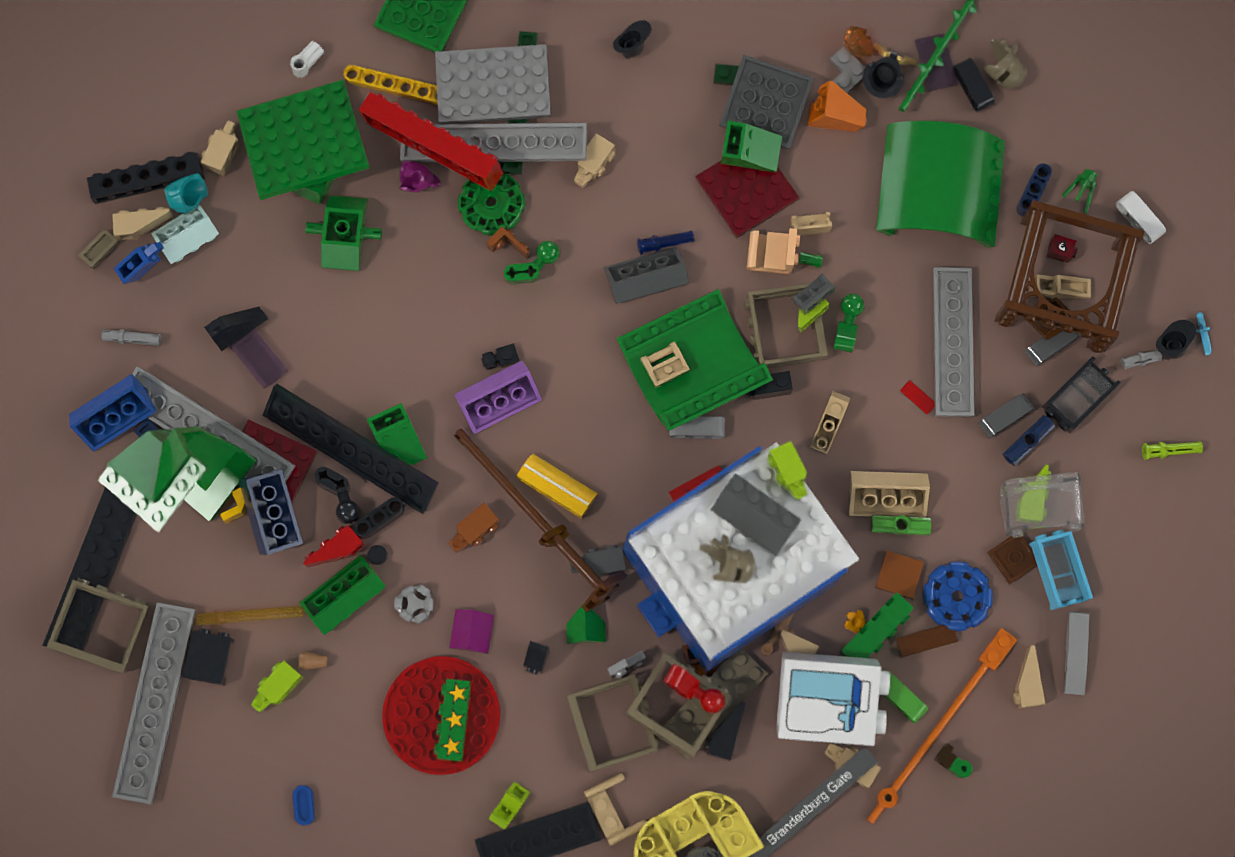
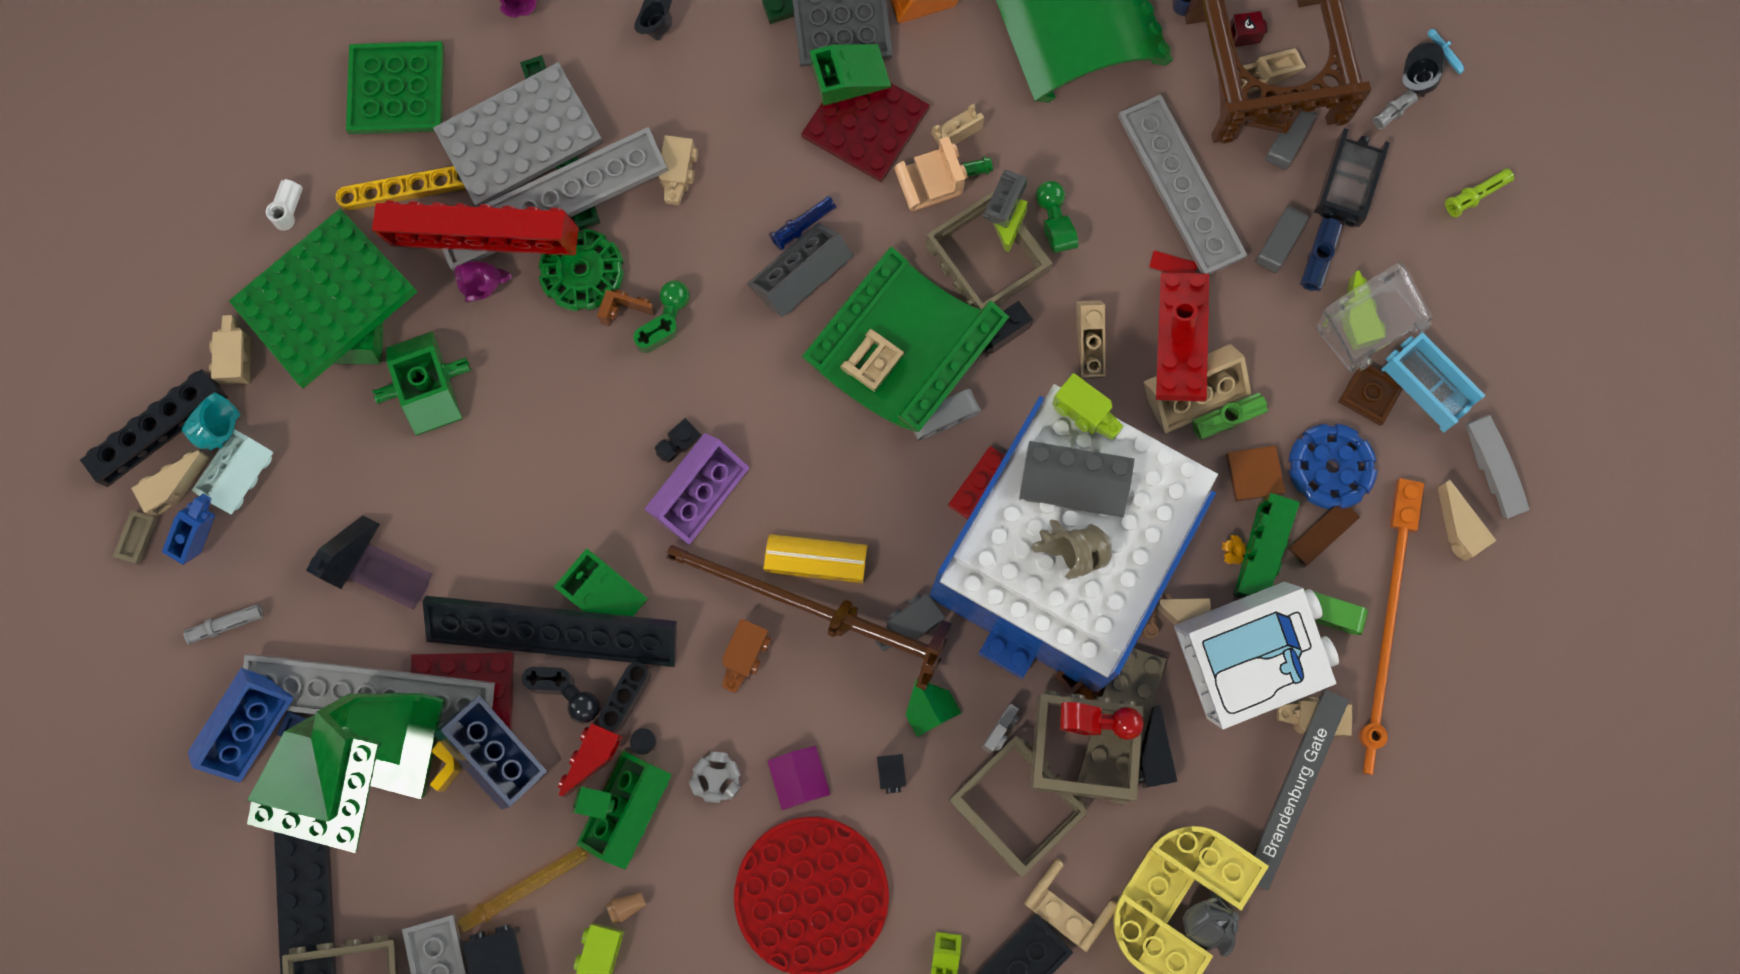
camera: 25 degrees left, 0 degrees up
(323, 579) = (593, 803): none -> green slope
(454, 720) = (830, 896): green brick -> none
(894, 452) = (1183, 337): none -> red plate
(952, 763) = (1426, 659): leg -> none

